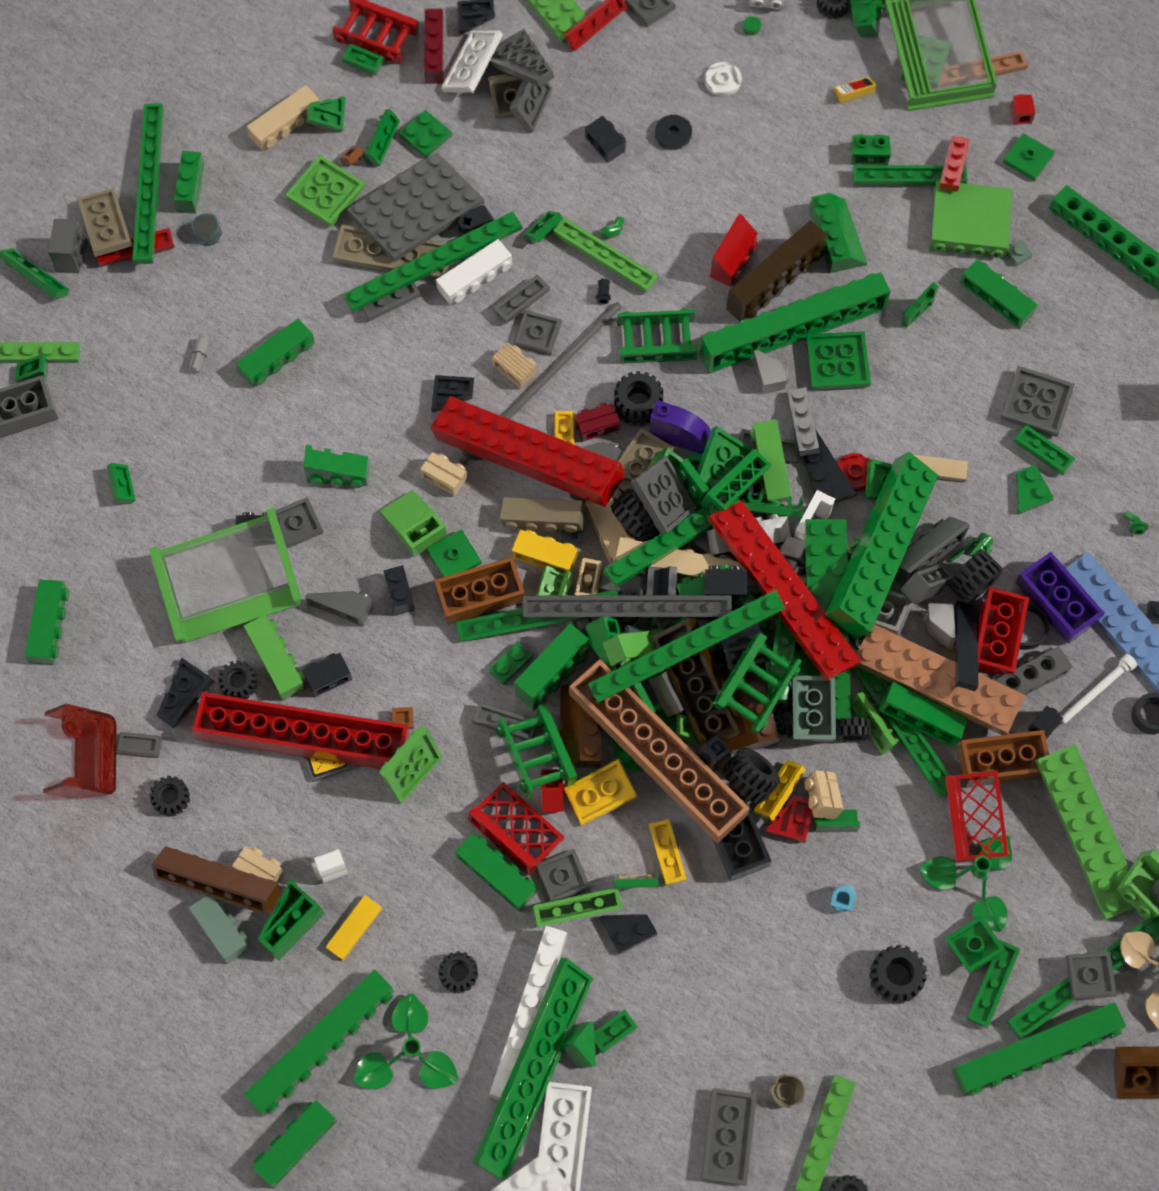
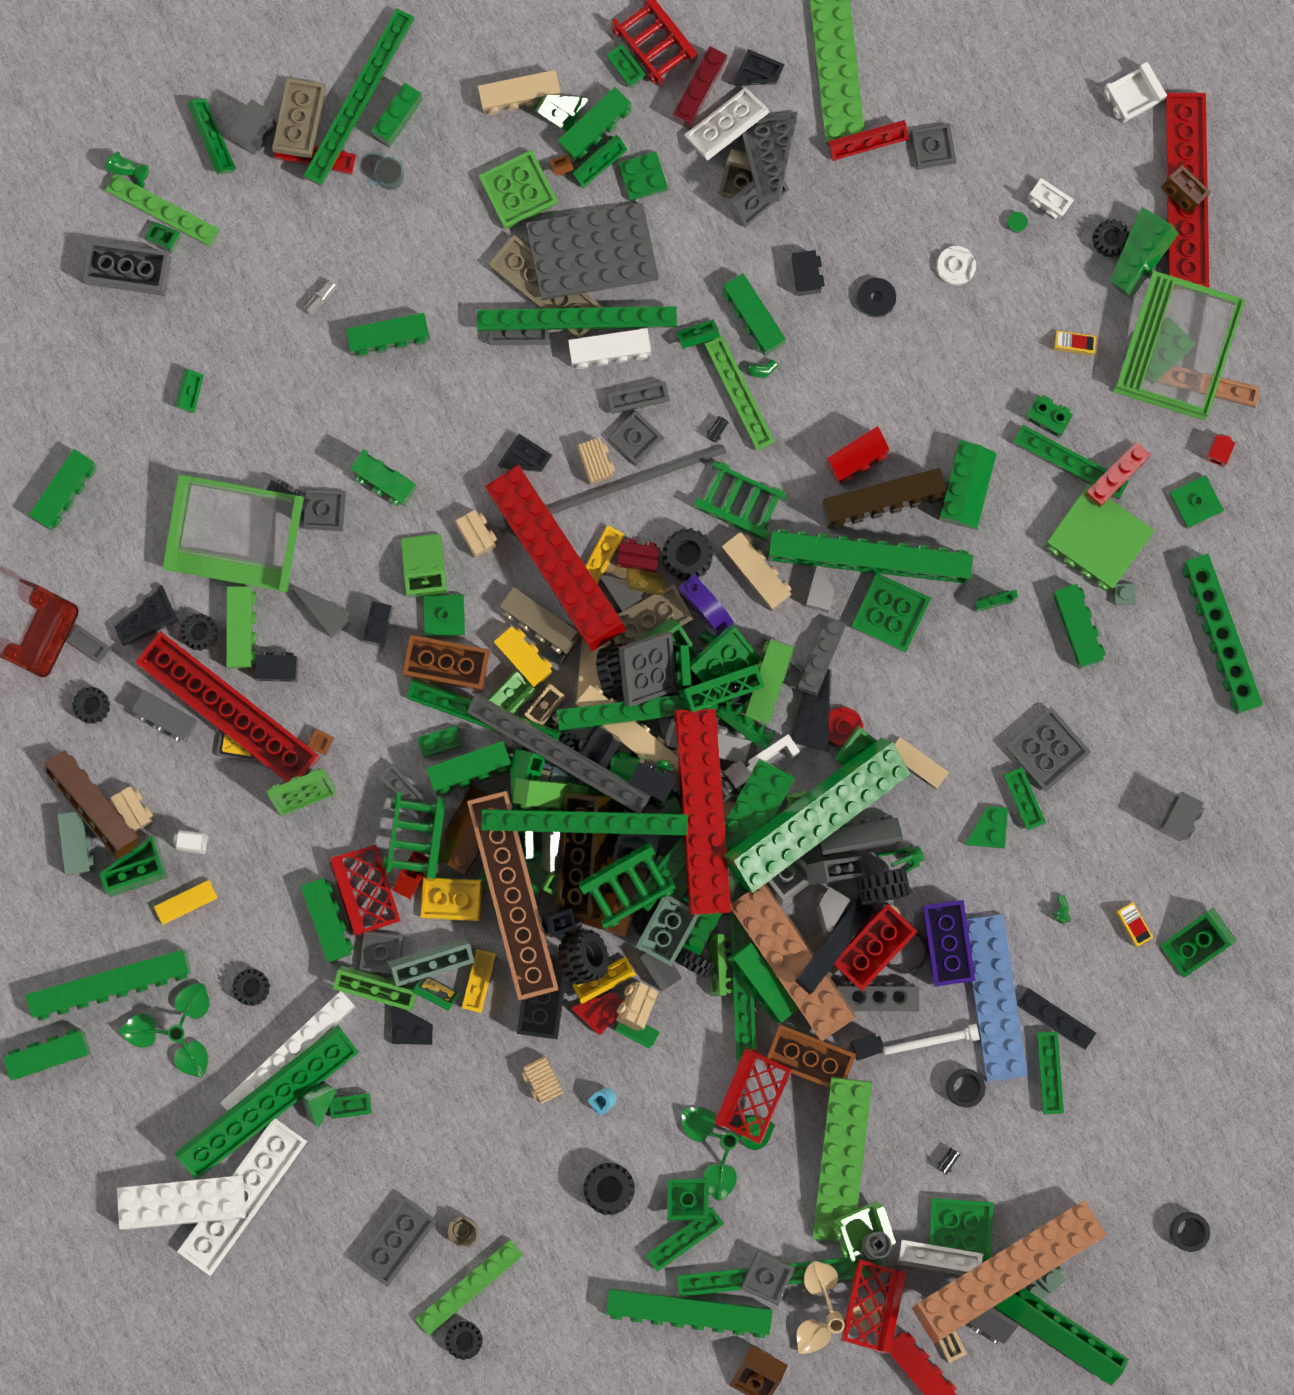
camera: 30 degrees right, 15 degrees up
(244, 769) = (164, 716): none -> dark grey brick
(362, 112) = (595, 124): none -> green brick
(474, 219) = (640, 295): black piece -> none
(580, 189) = (754, 314): none -> green brick
(614, 855) = (431, 962): none -> sand green brick
(615, 436) = (645, 581): none -> clear yellow piece
(704, 383) = (756, 571): none -> tan brick
(778, 909) = (542, 1079): none -> tan brick
(823, 755) = (661, 972): none -> dark grey panel

